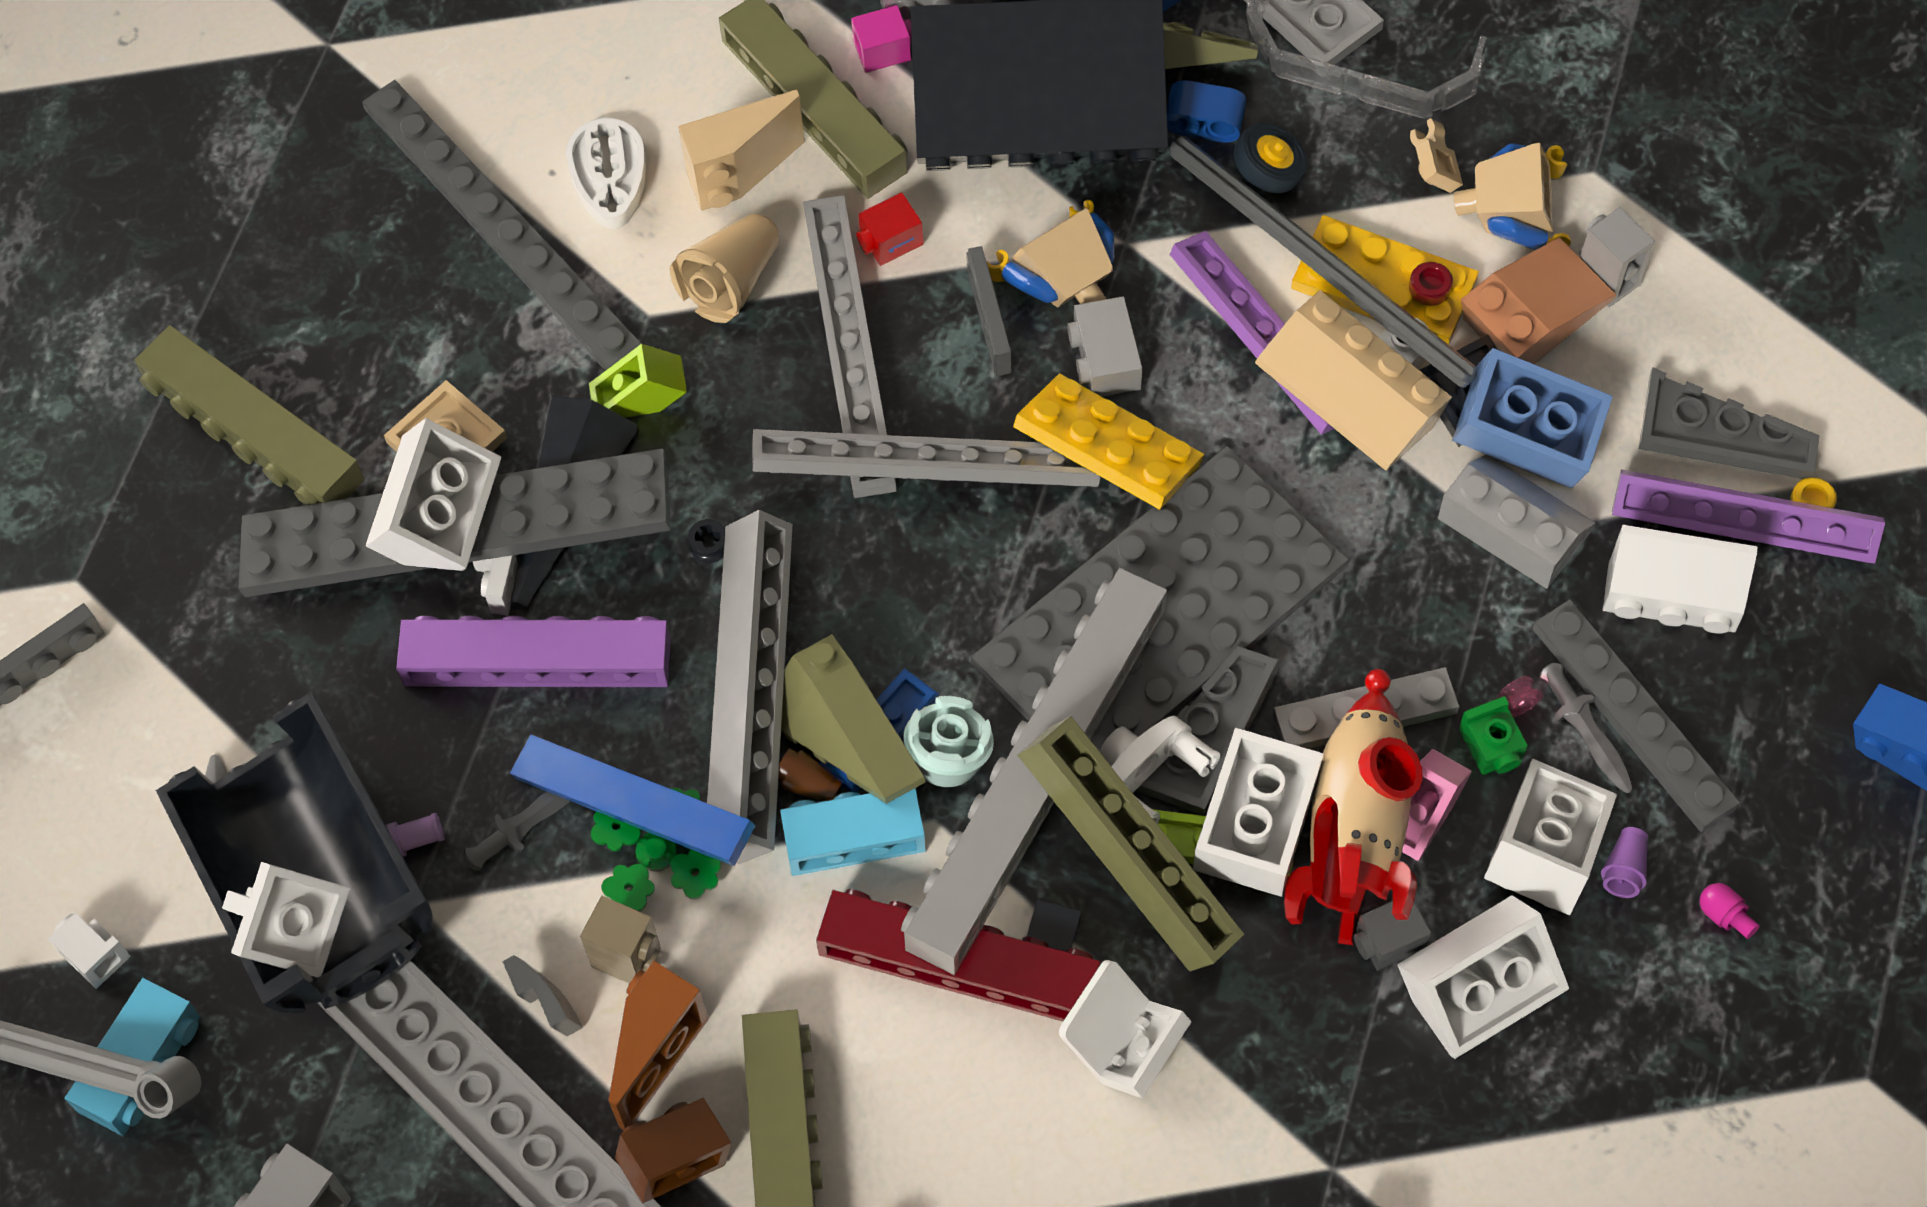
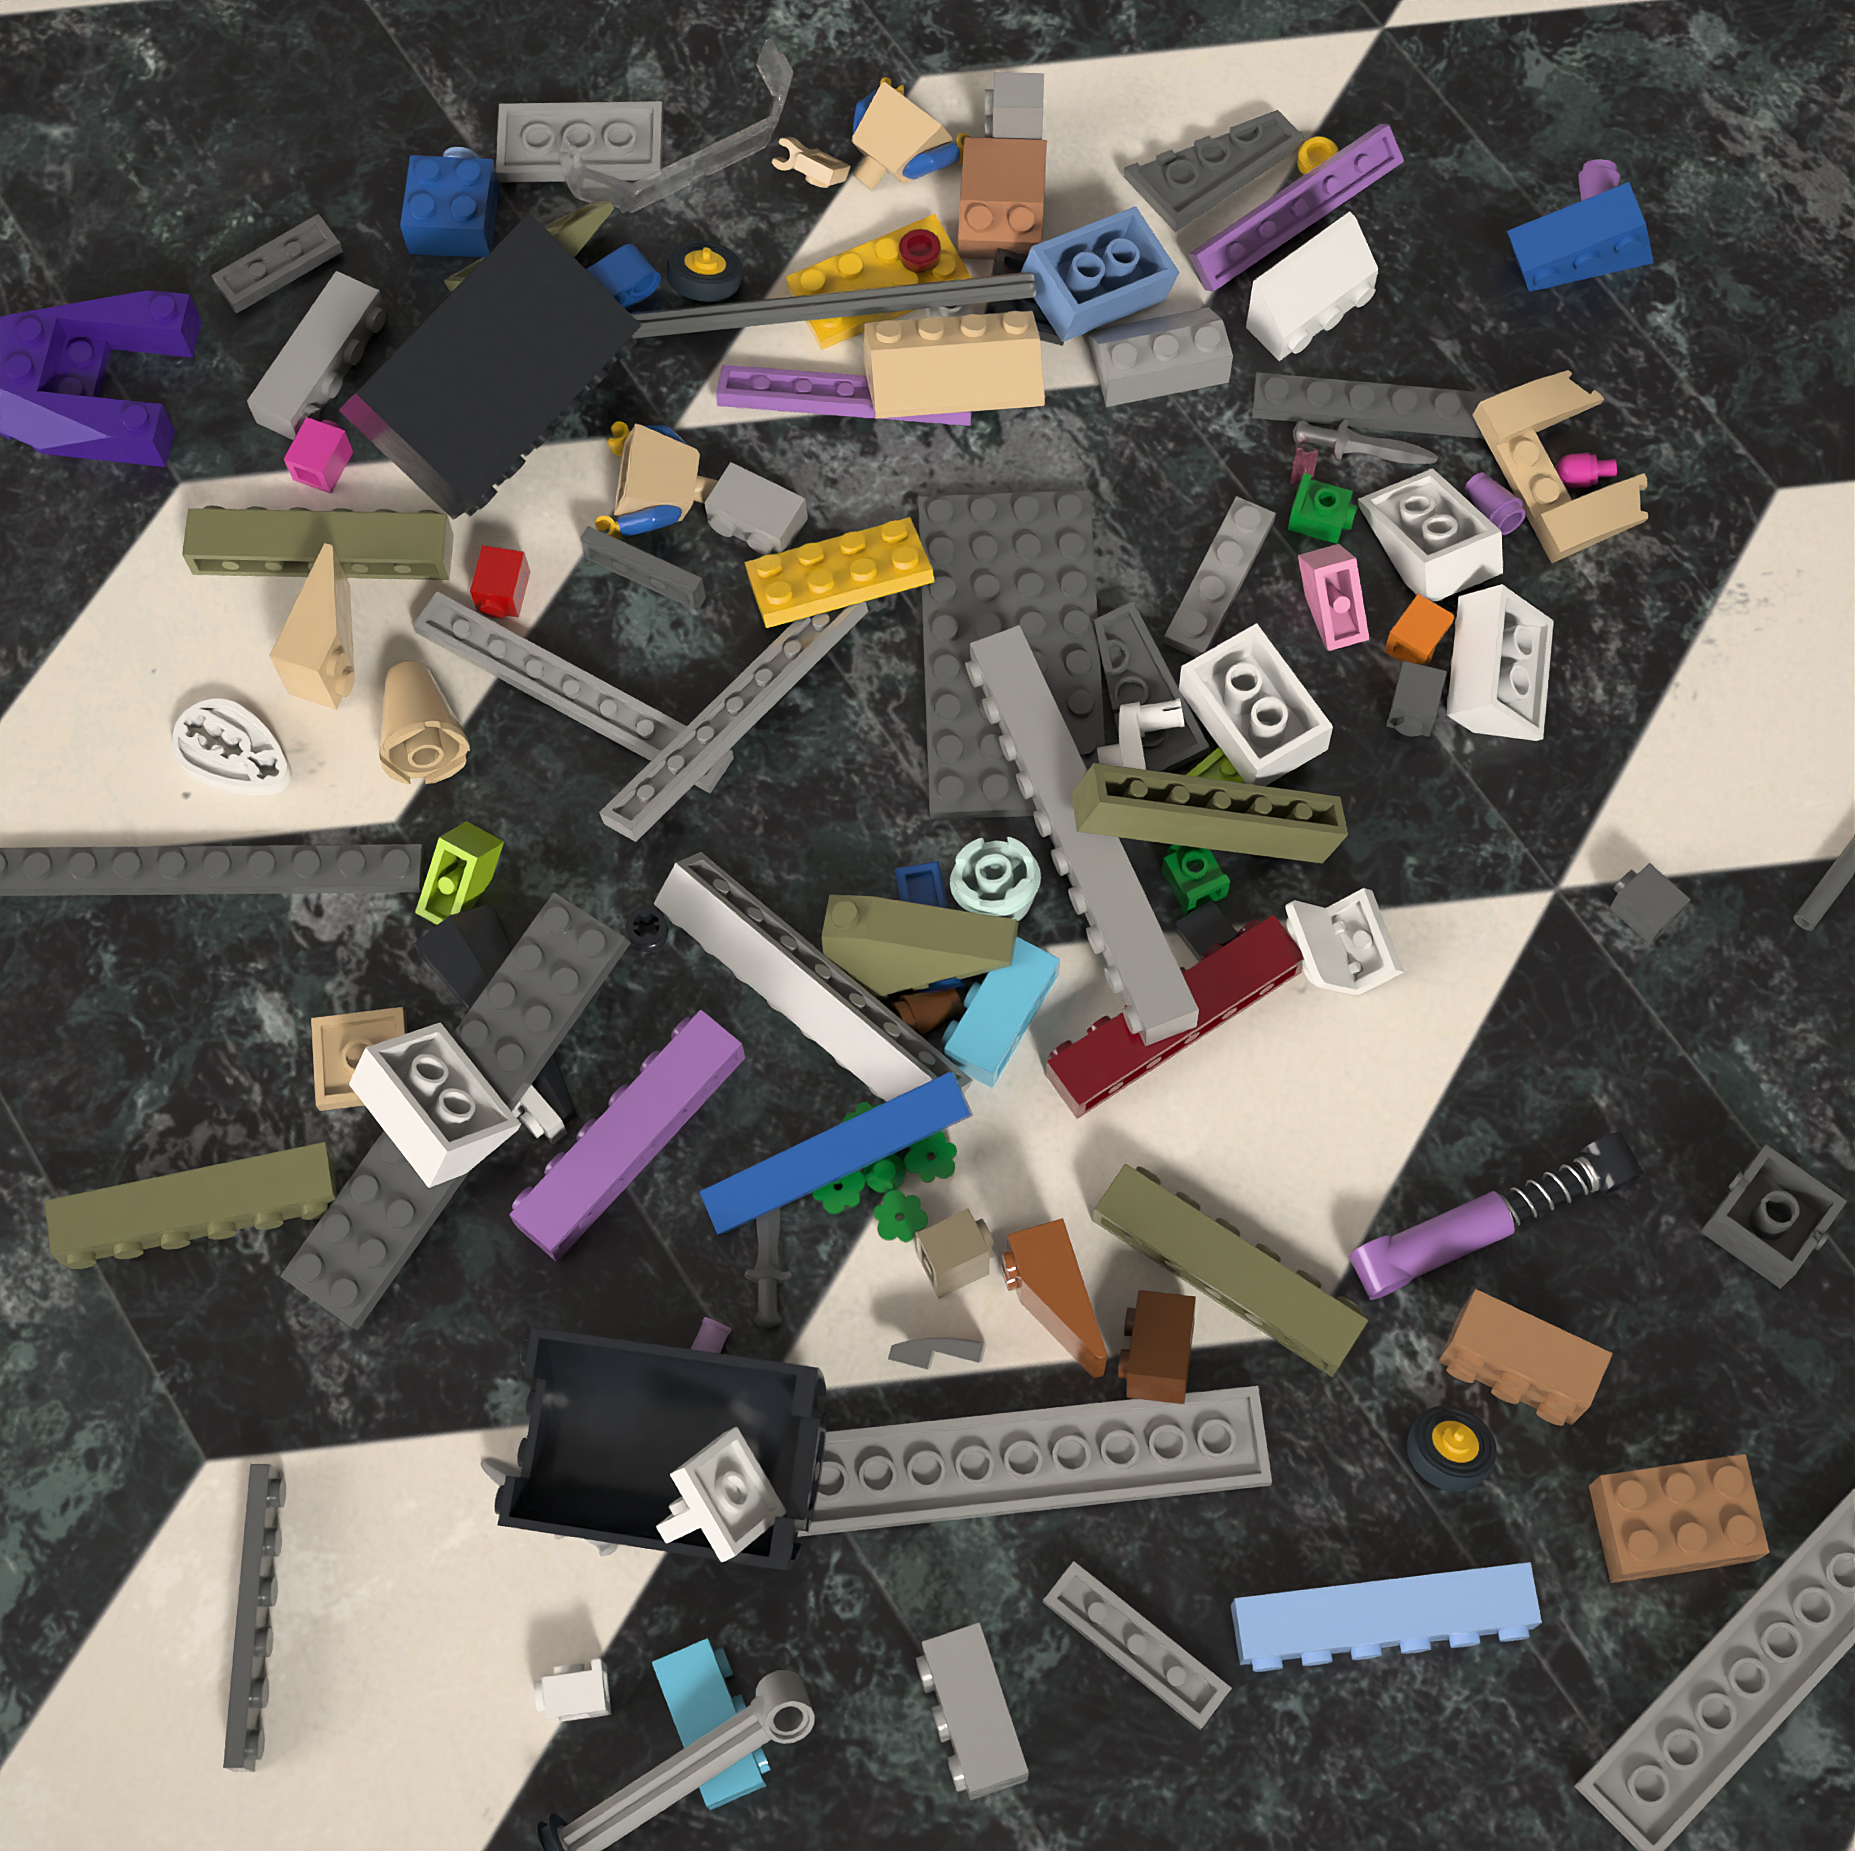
camera: 50 degrees left, 5 degrees up
(1085, 894) = (1194, 888): none -> green brick
(1360, 815) = (1319, 637): piece -> none
(1451, 888) = (1418, 632): none -> orange panel
(1661, 924) = (1560, 523): none -> tan wedge

